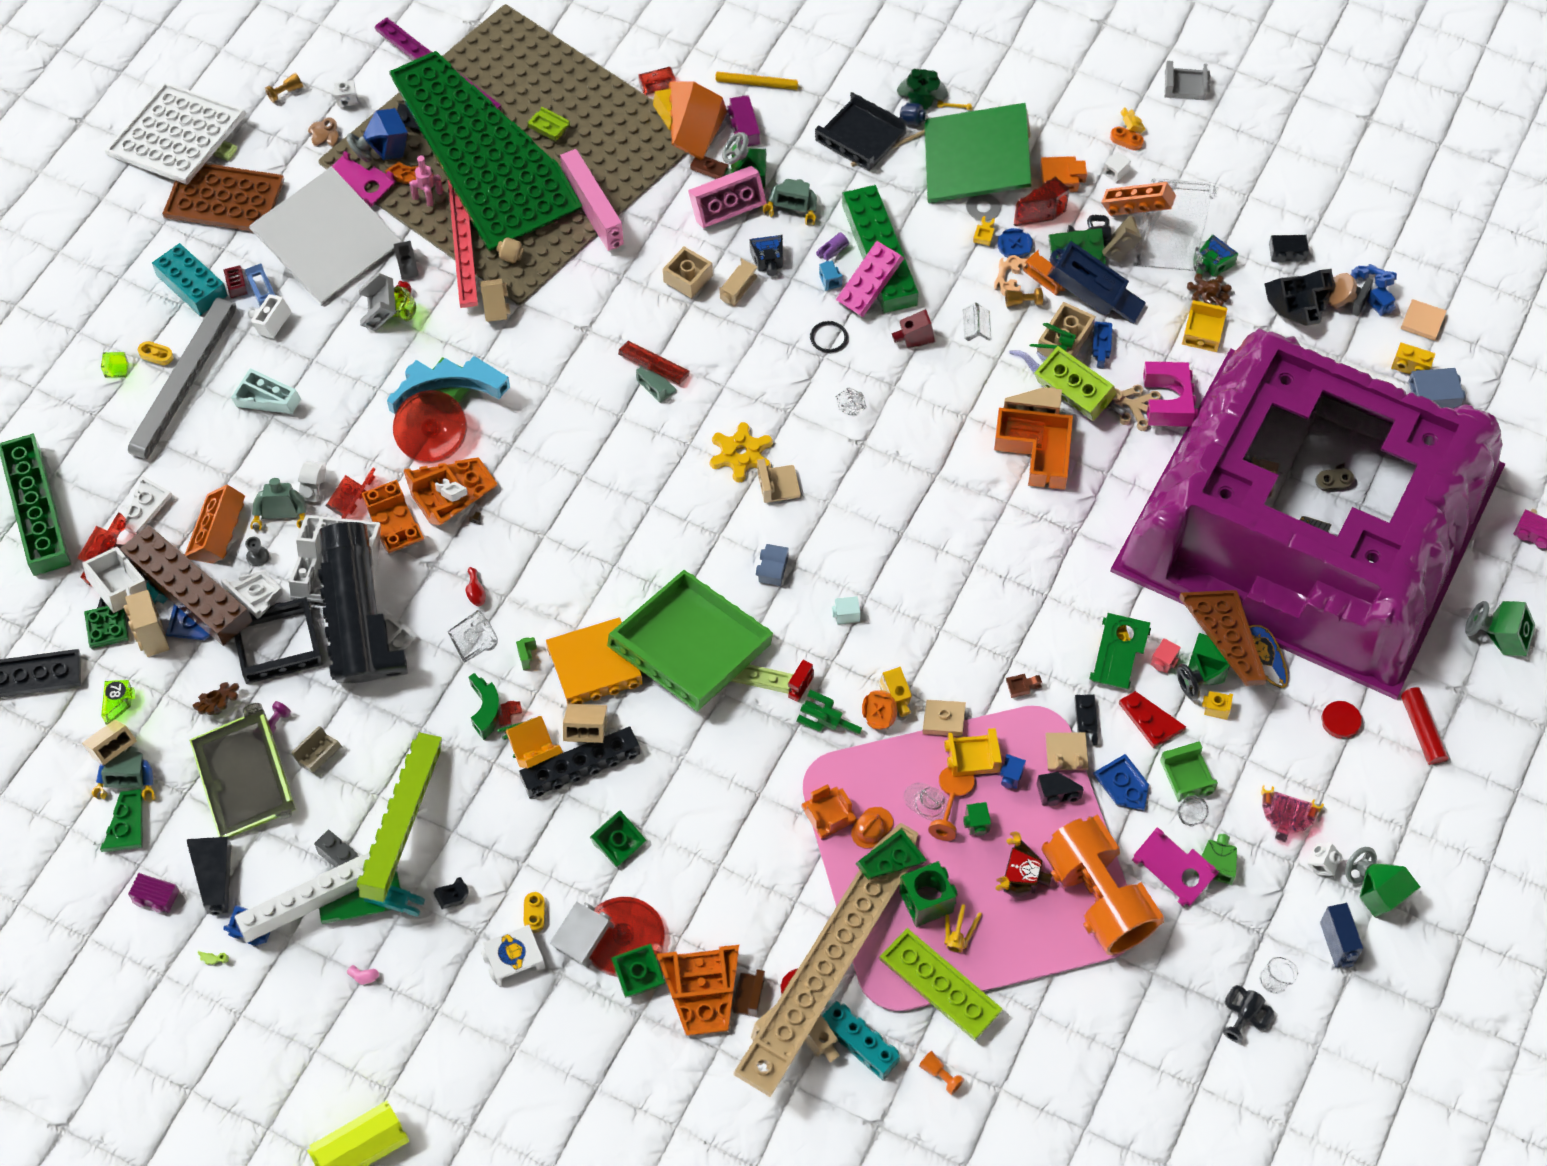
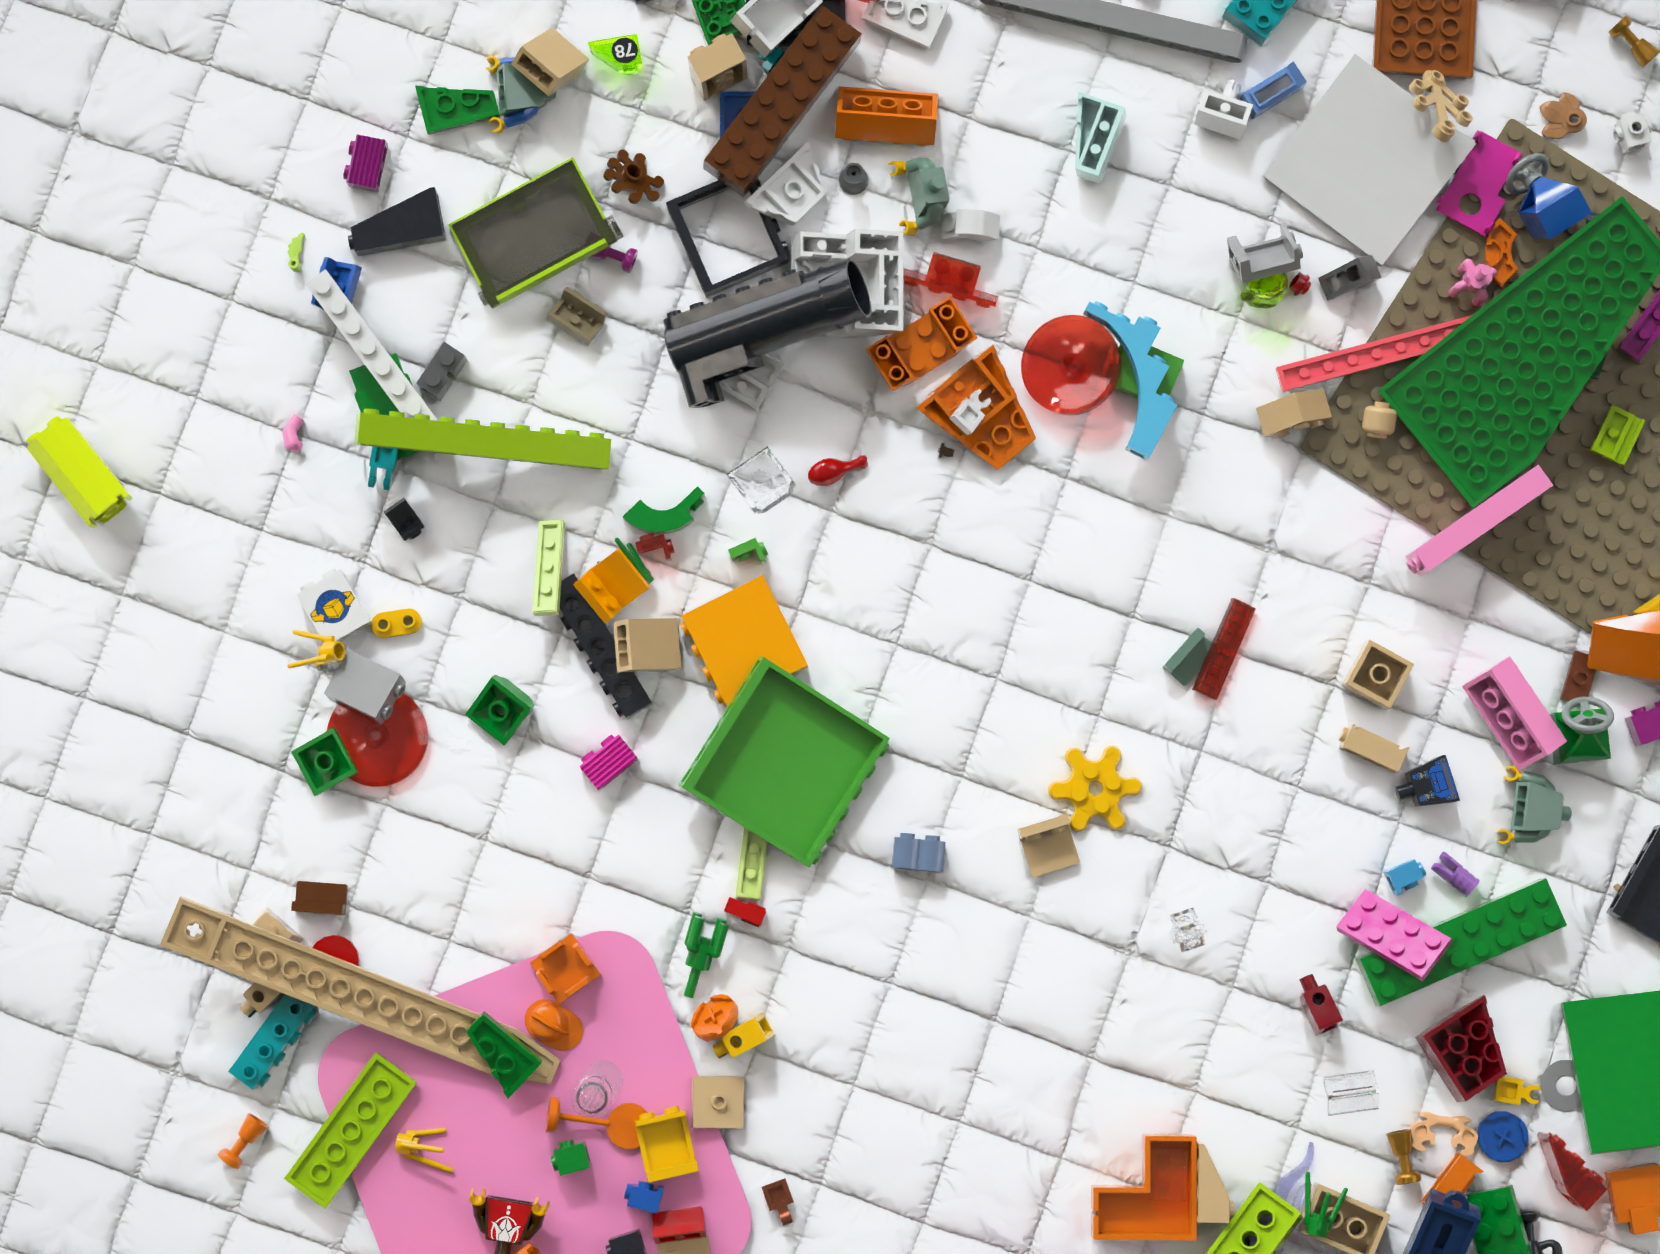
camera: 80 degrees right, 25 degrees up
(238, 290) = (1266, 59): dark red slope -> none
(313, 176) = (1434, 82): none -> tan plant
(511, 788) = (548, 568): none -> yellowish green tile
(548, 954) = (328, 653): none -> yellow plant
(671, 766) = (608, 761): none -> dark pink brick
(702, 987) = (319, 840): orange wedge -> none
(825, 323) = (1288, 904): black tyre -> none
(846, 610) = (861, 958): light aqua brick -> none
(923, 910) = (435, 1101): green brick -> none
(954, 253) = (1464, 1050): none -> dark red wedge
(1036, 751) = (678, 1225): none -> red panel

